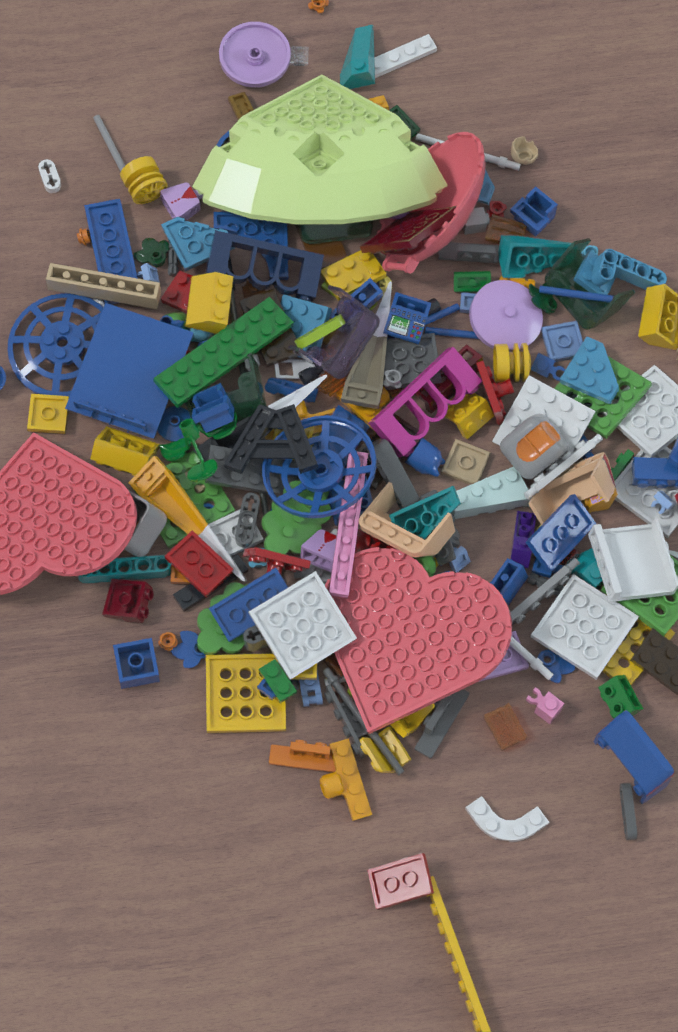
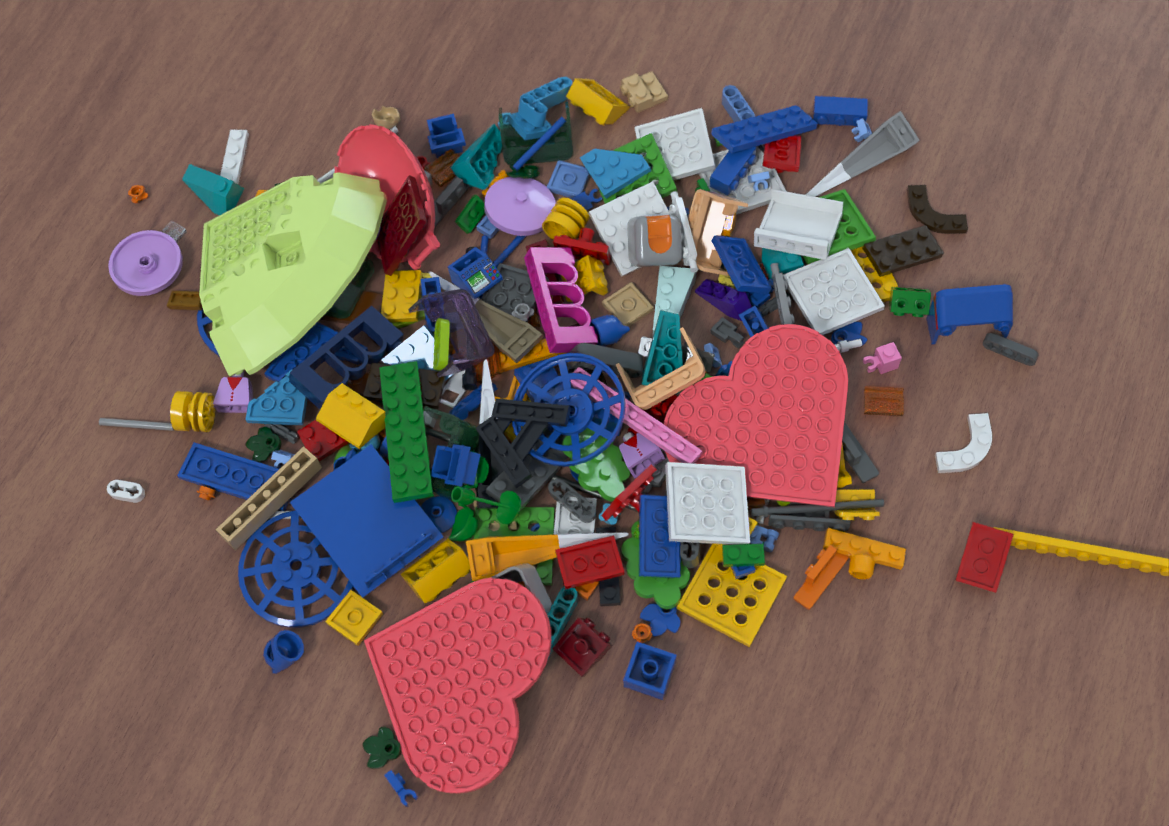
camera: 50 degrees left, 5 degrees down
(490, 557) = (726, 331): none -> dark grey plate

